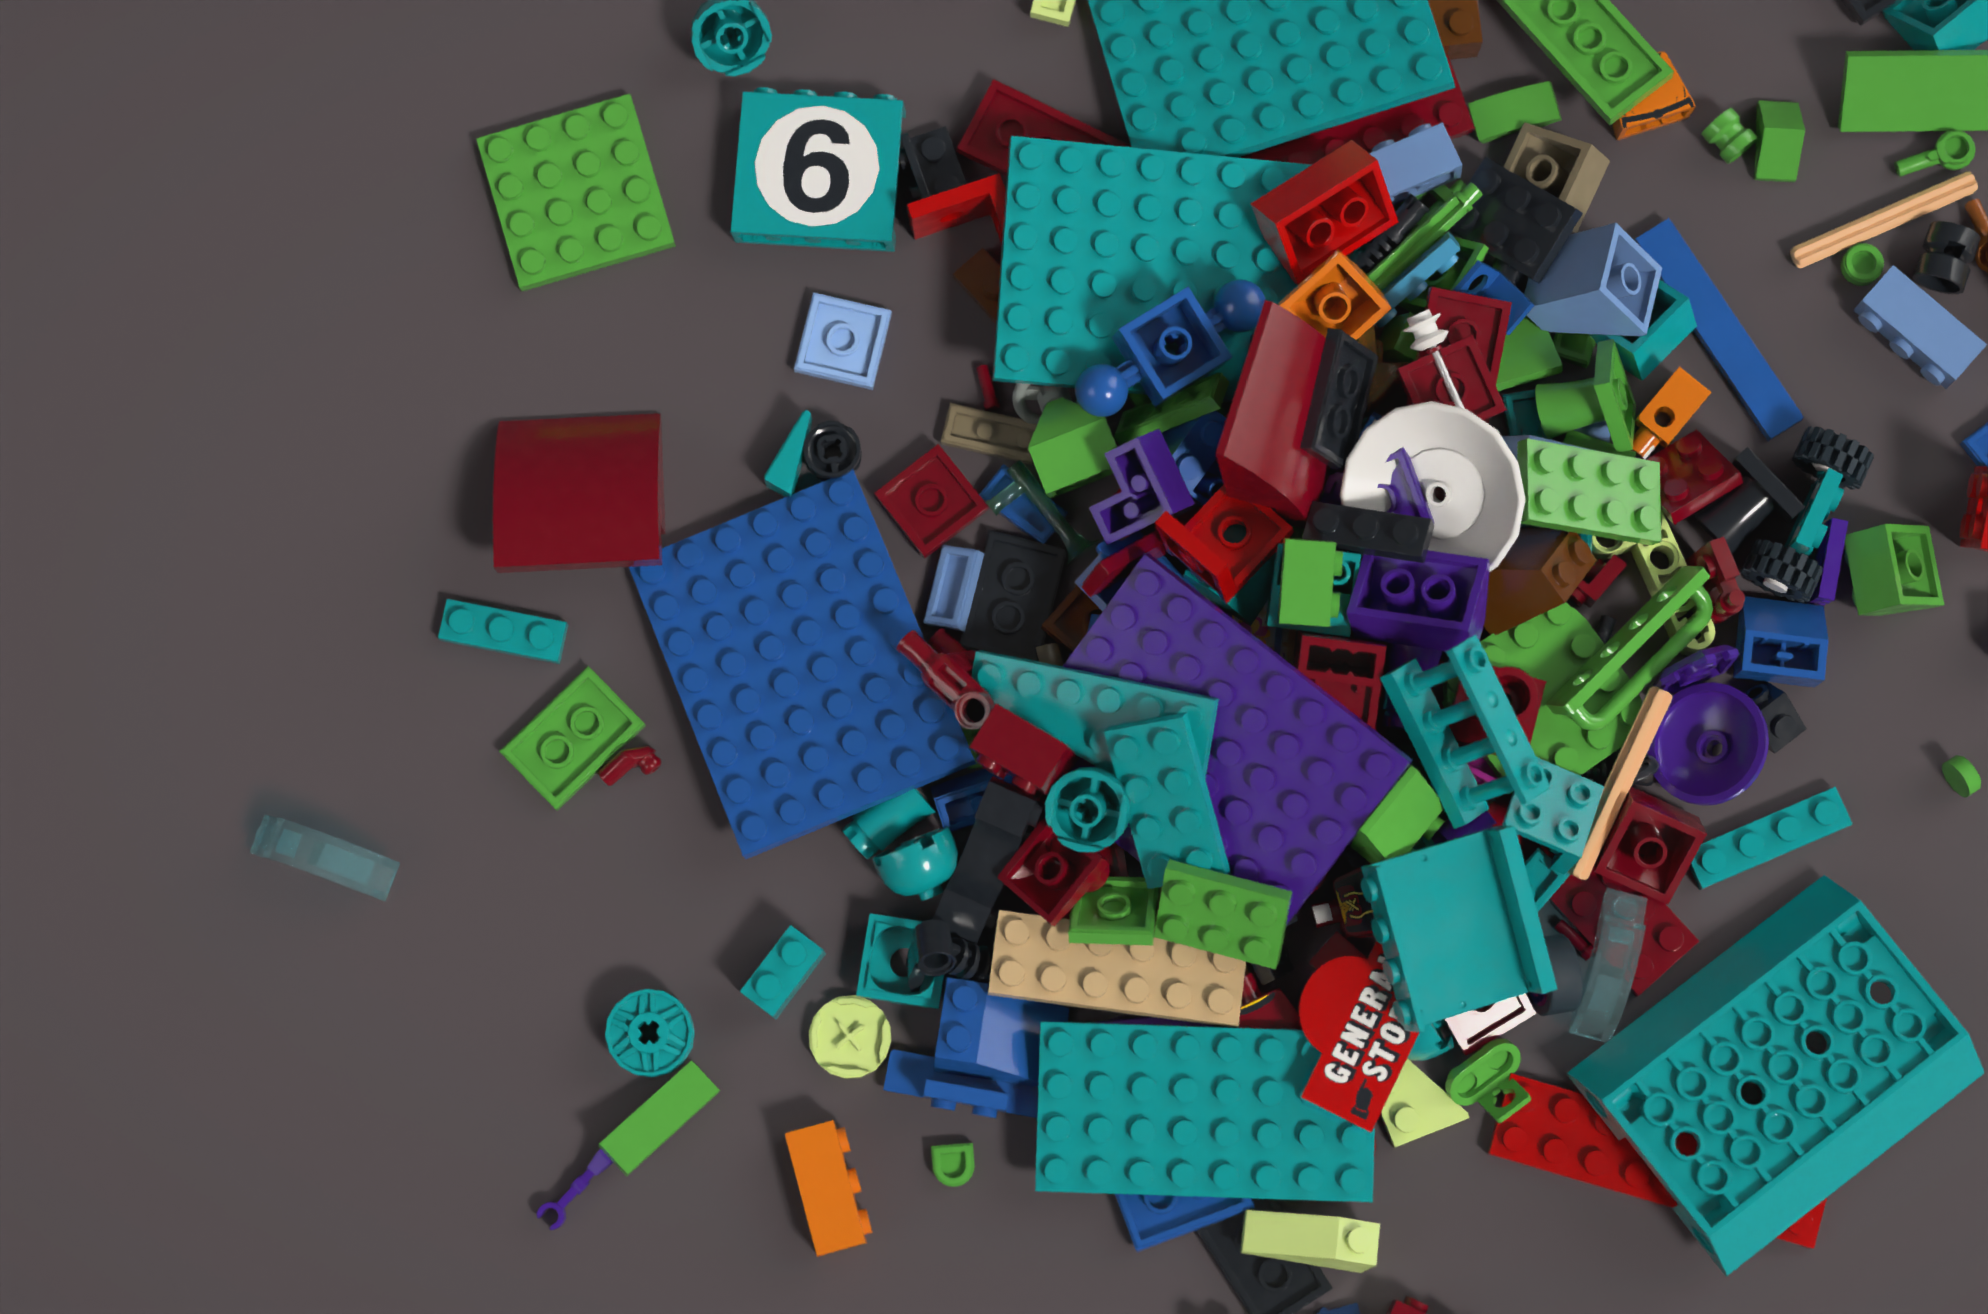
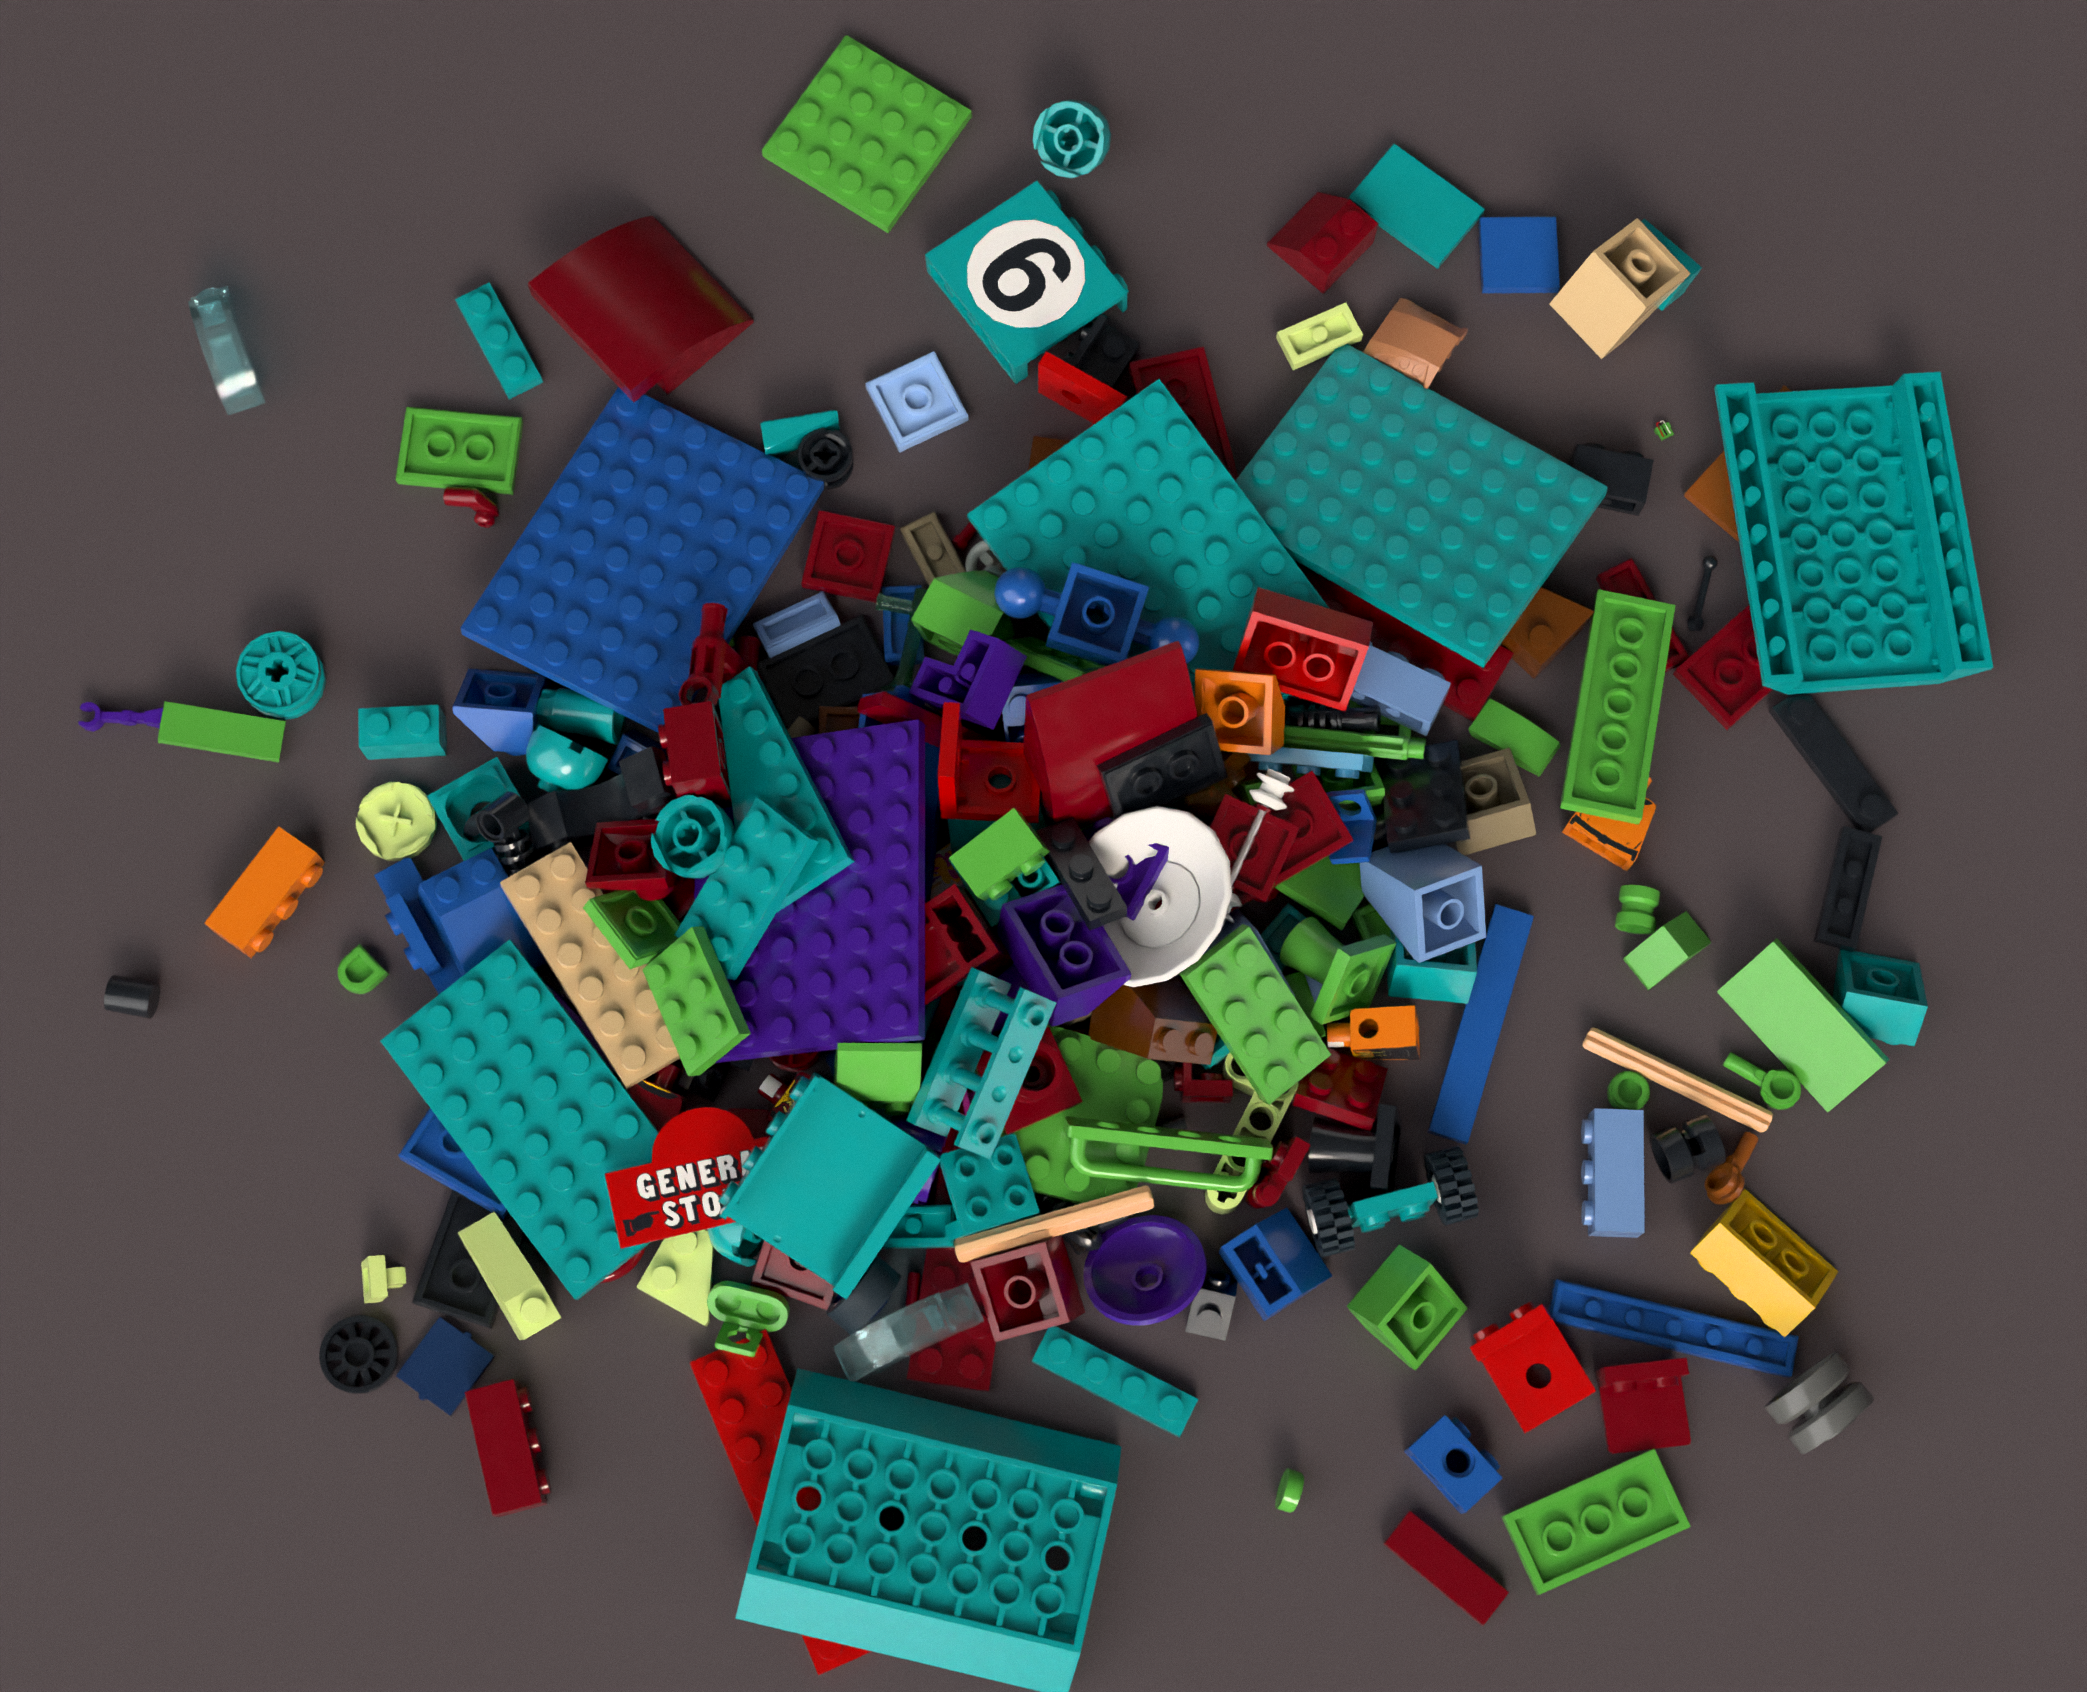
camera: 45 degrees right, 5 degrees down
(828, 876) = (500, 707): none -> blue slope
(1697, 668) = (1192, 1210): dark purple tile -> none
(1829, 557) = (1369, 1250): dark purple tile -> none

